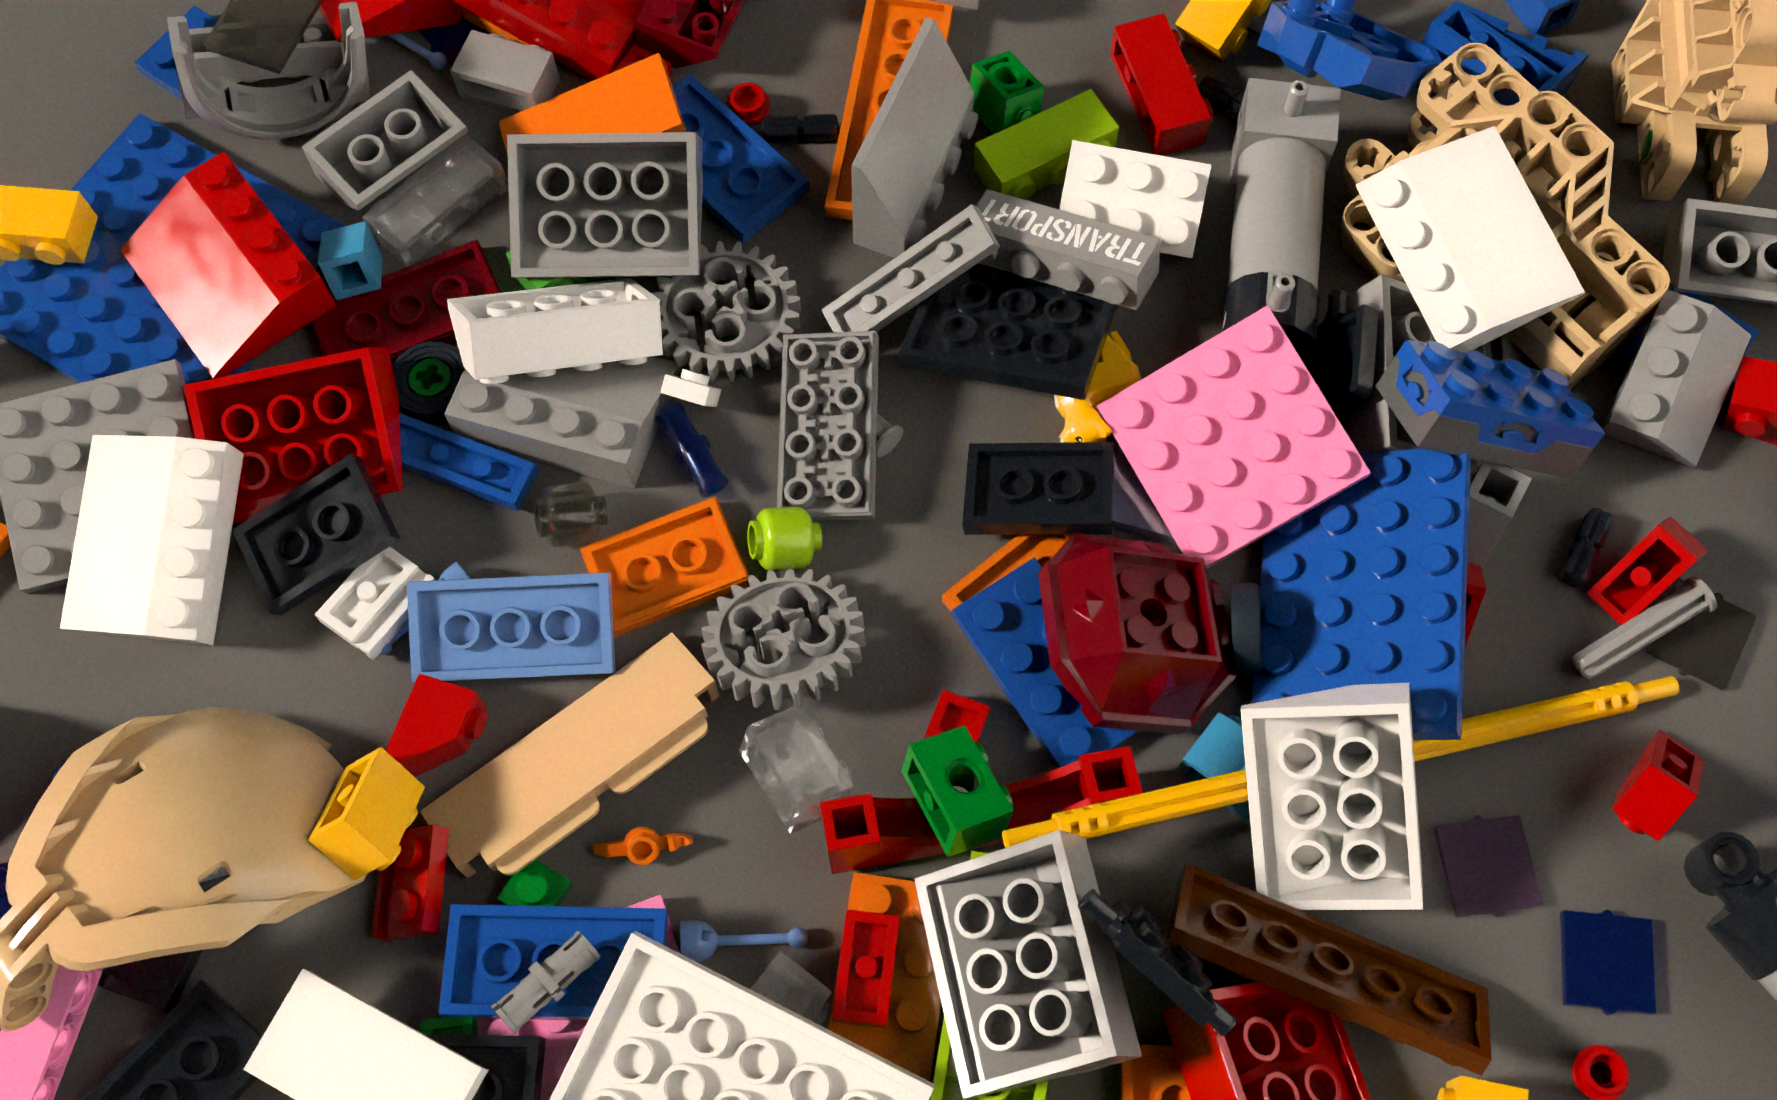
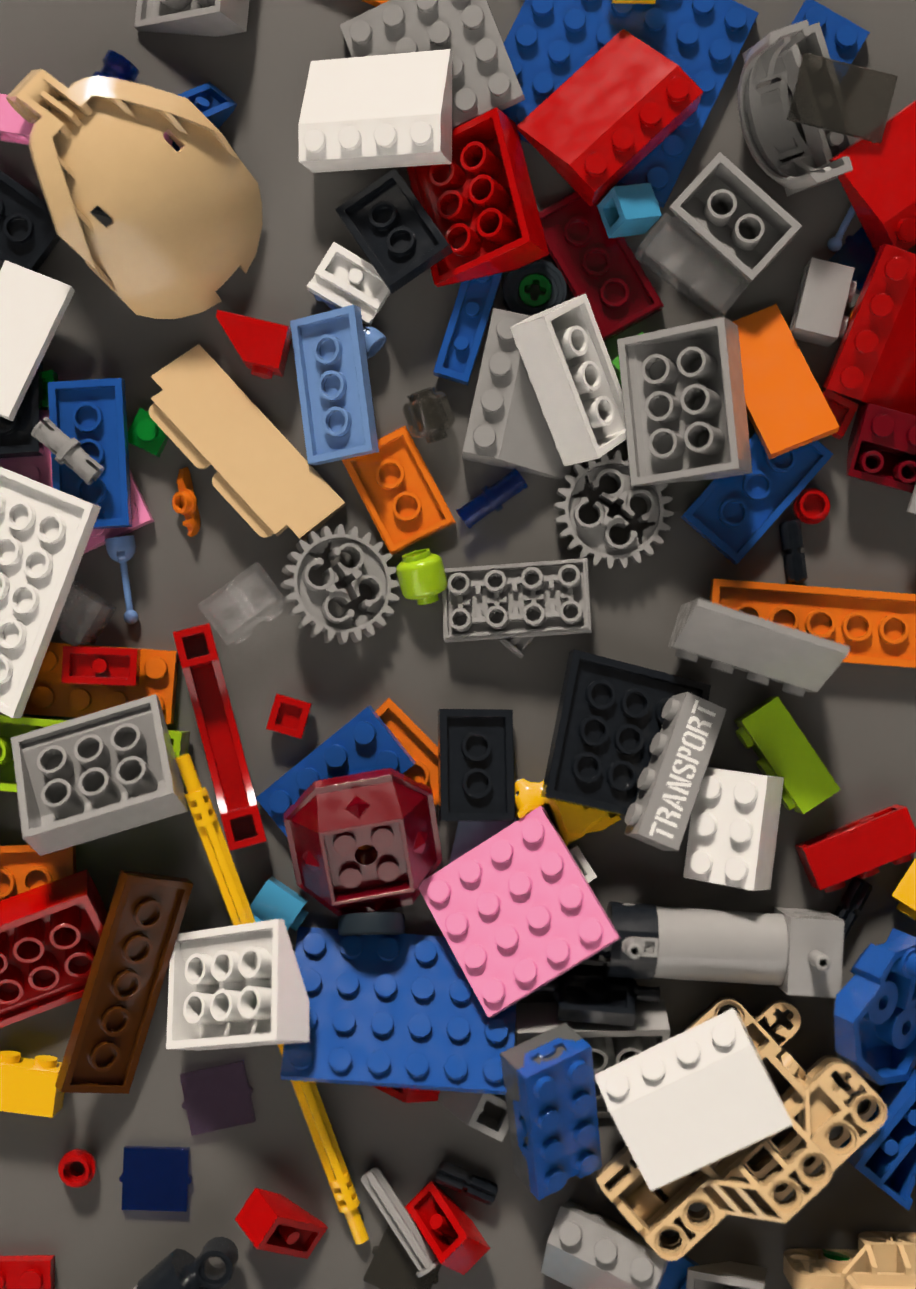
camera: 85 degrees right, 20 degrees up
(368, 814) = (177, 309): yellow brick -> none
(412, 886) = (143, 346): red plate -> none
(692, 388) = (540, 492): white plate -> none
(914, 274) = (642, 654): light grey plate -> none
(957, 817) = (205, 719): green brick -> none
(1004, 91) = (830, 717): green head -> none
(1170, 968) = (93, 864): black plate -> none

